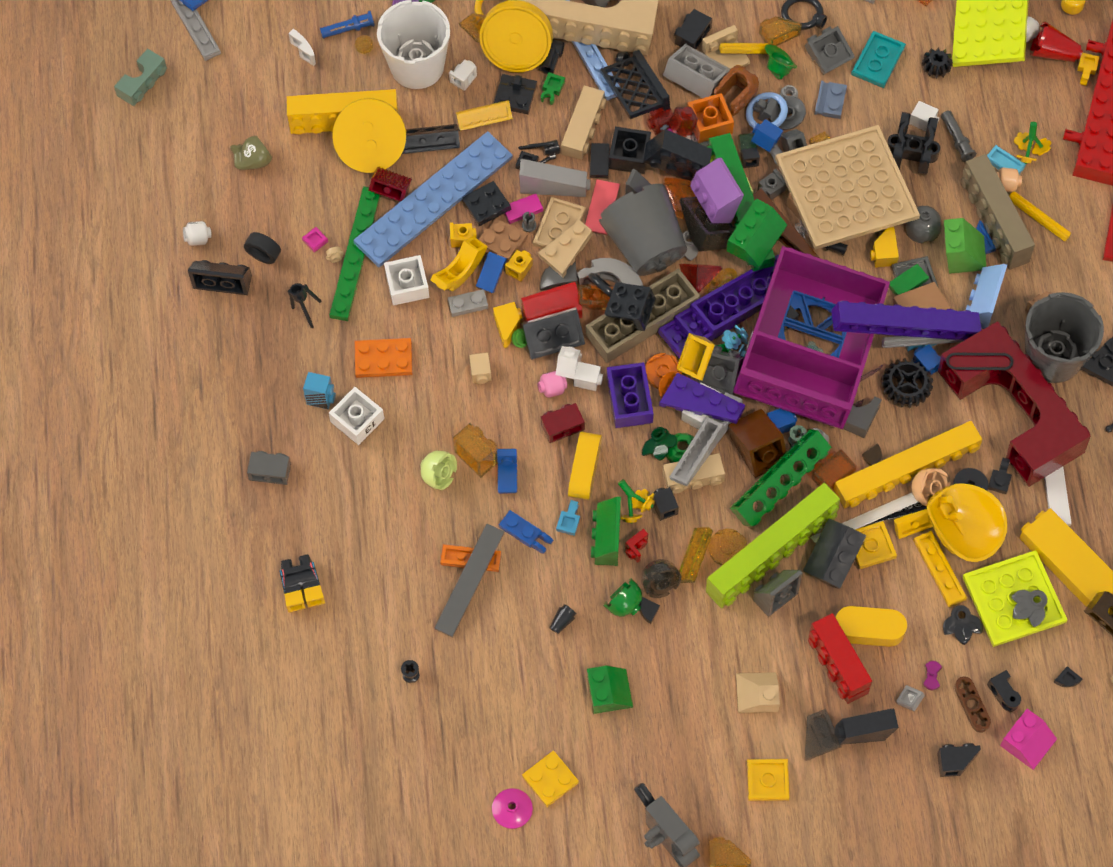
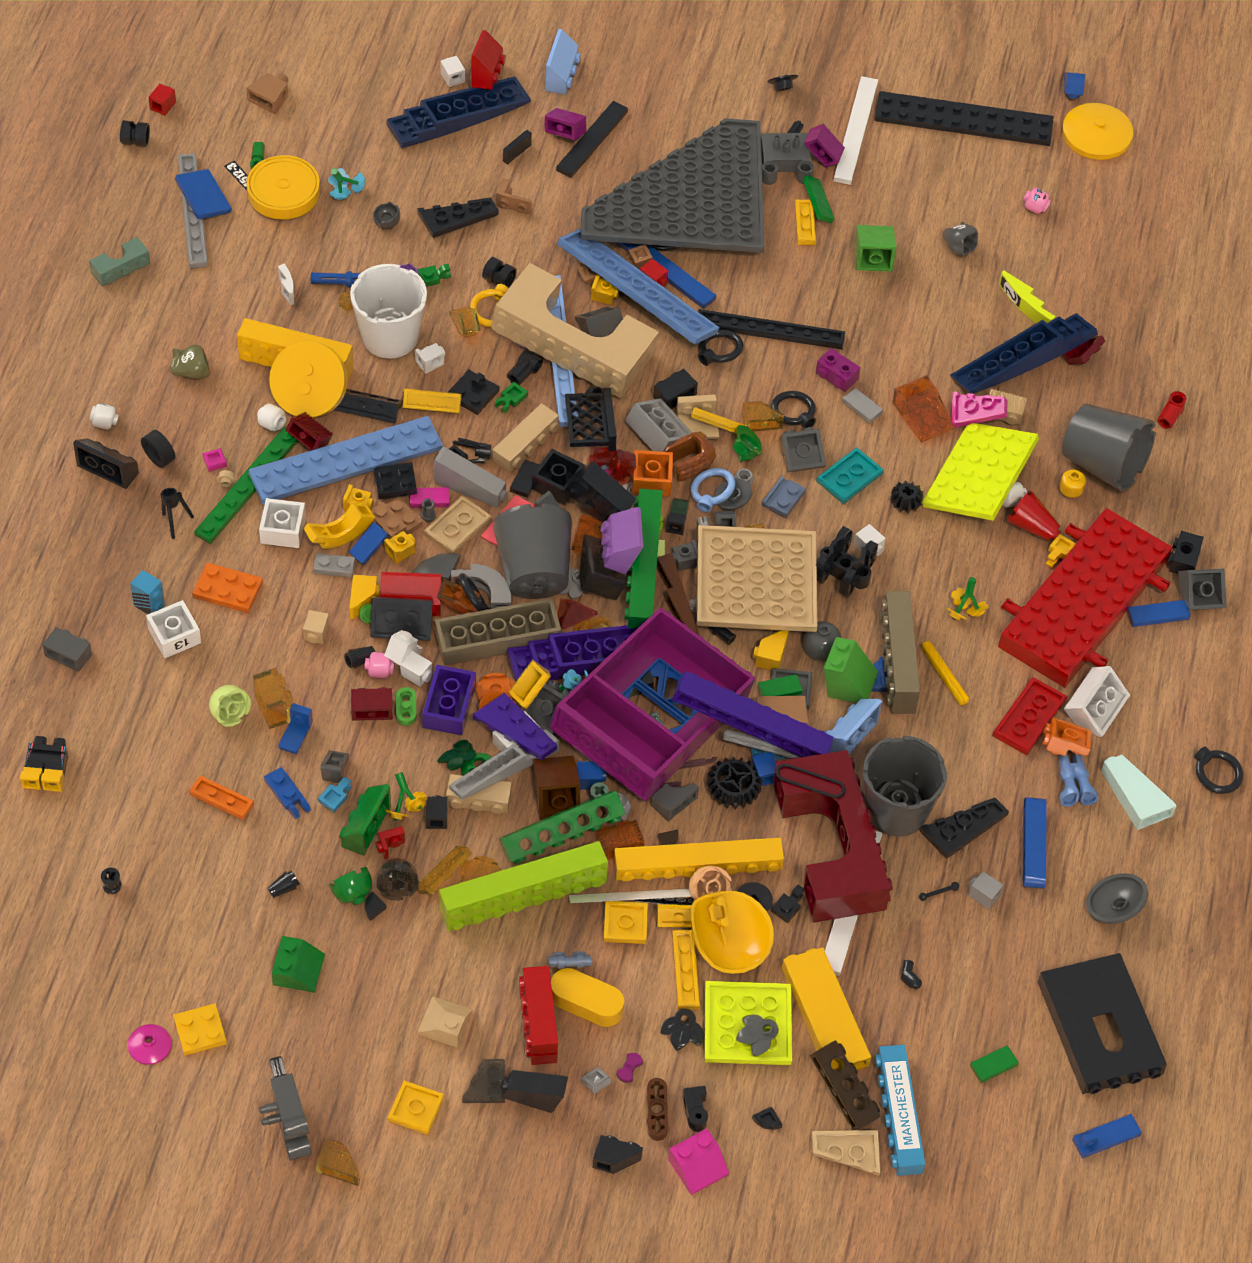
camera: 15 degrees right, 10 degrees down
(348, 181) = (271, 417): none -> white head
(469, 580) = (209, 816): dark grey tile -> none
(516, 36) = (493, 335): yellow brick -> none
(530, 382) = (357, 656): none -> black cone
(557, 492) = (333, 766): none -> dark grey slope
(564, 249) = (451, 544): tan wing -> none
(584, 465) = (373, 749): yellow plant -> none
(592, 415) = (406, 708): none -> bright green plate
(631, 303) = (488, 612): black bracket -> none
(756, 233) = (641, 588): green slope -> none
(765, 108) = (712, 482): dark grey tile -> none
(766, 135) = (699, 505): blue brick -> none
(777, 591) = (508, 932): dark grey slope -> none
(834, 553) = (582, 915): black slope -> none
(836, 601) = (561, 960): none -> sand blue plate
(961, 142) = (896, 577): dark grey pin -> none
(1001, 159) = (934, 612): medium azure tile -> none
(1010, 178) = (926, 627): light nougat head -> none

